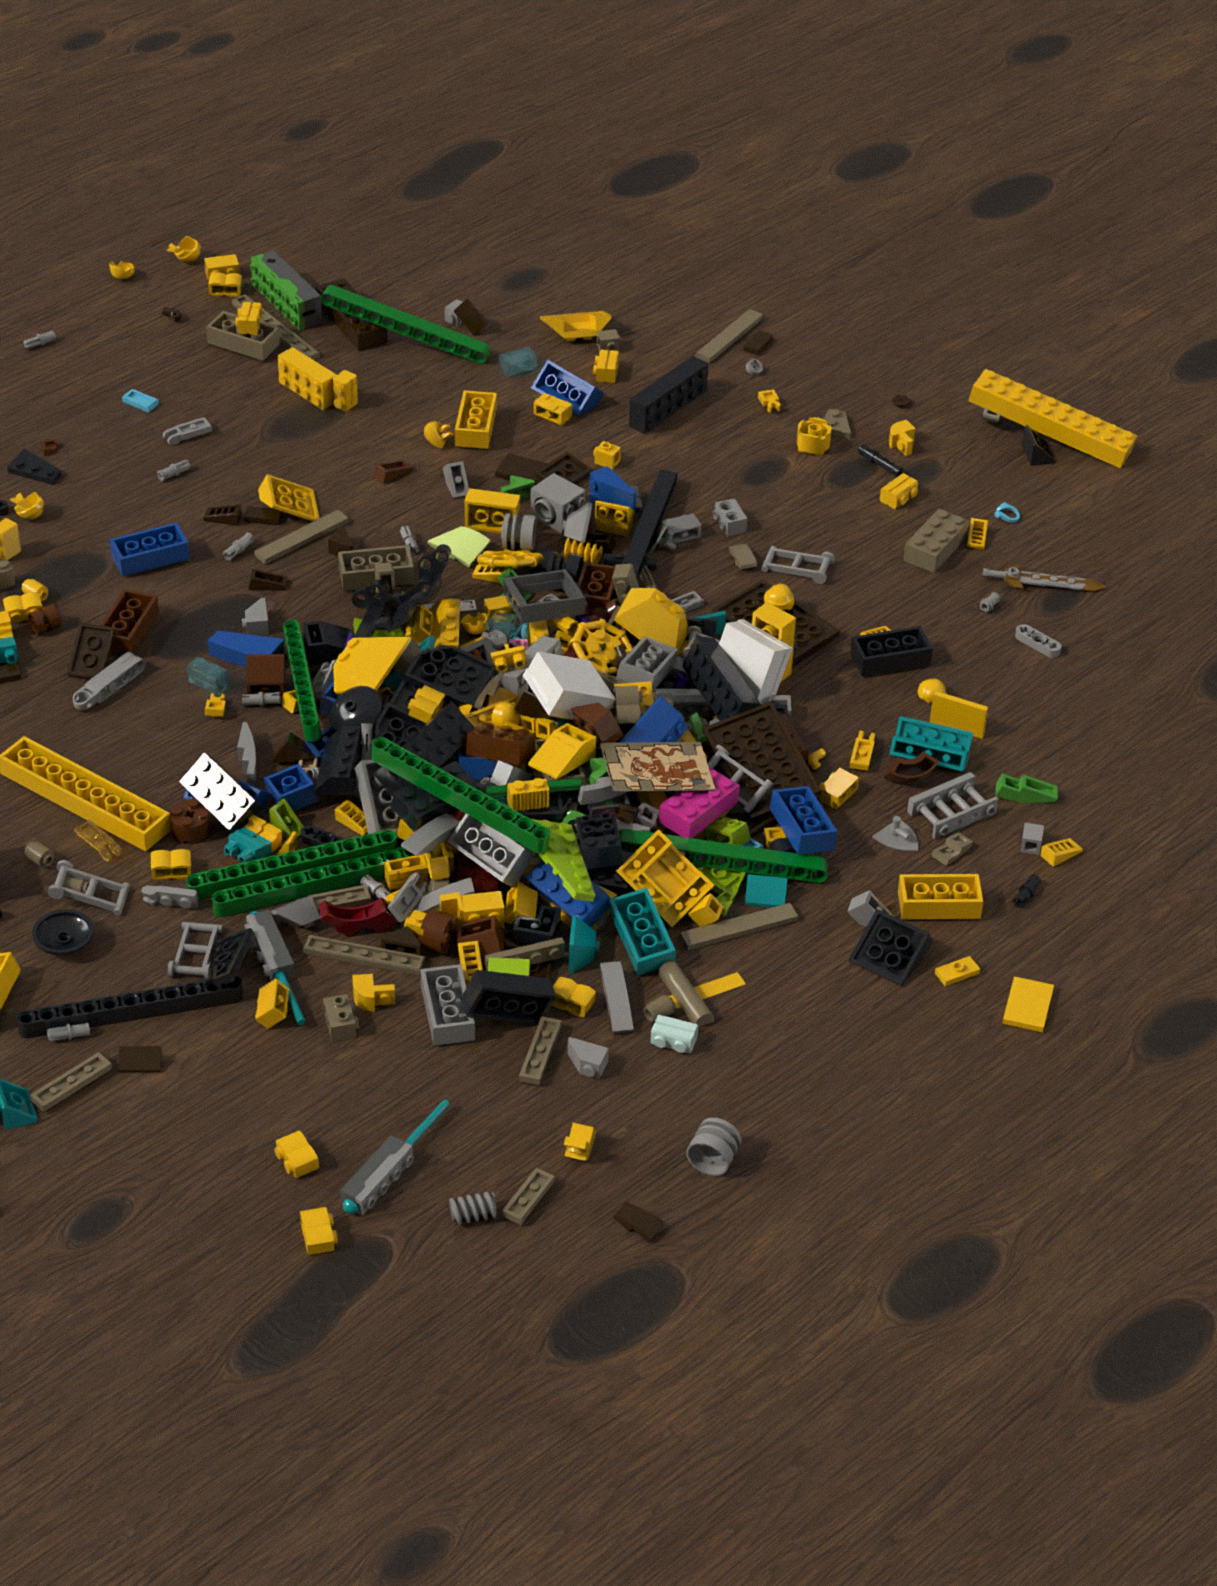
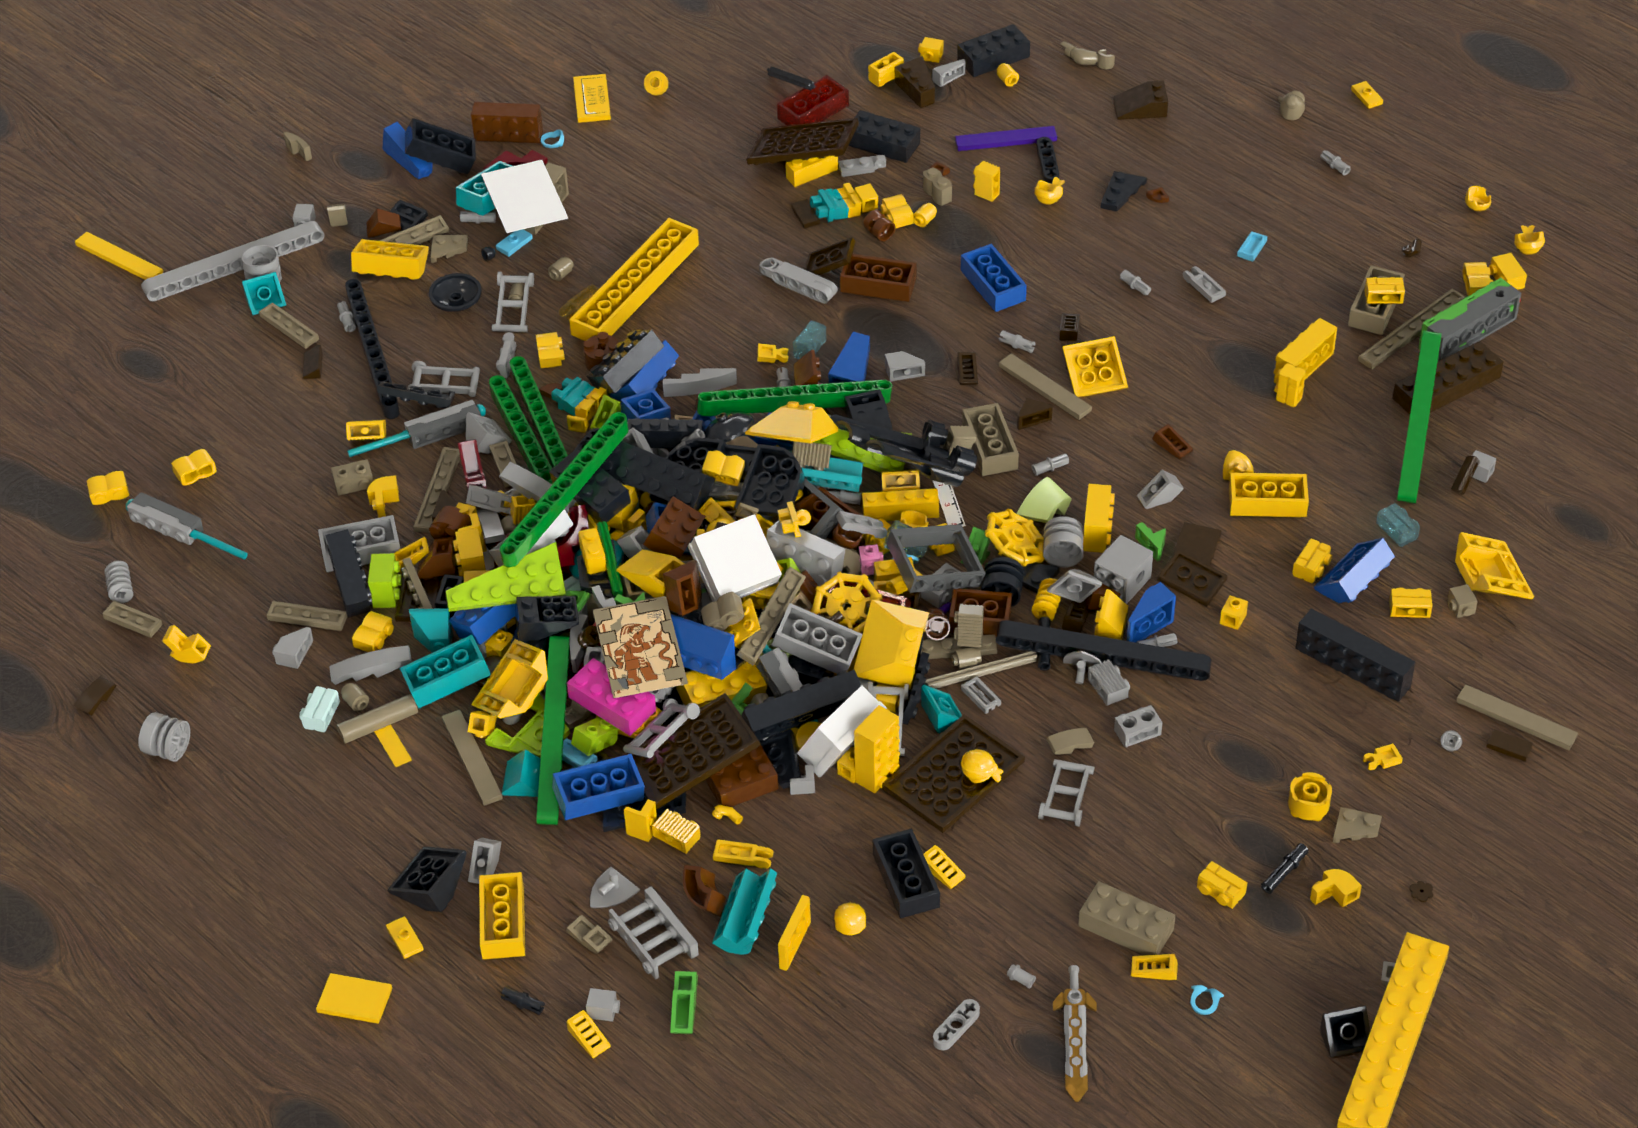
camera: 90 degrees right, 5 degrees up
(834, 799) = (640, 822): none -> yellow panel

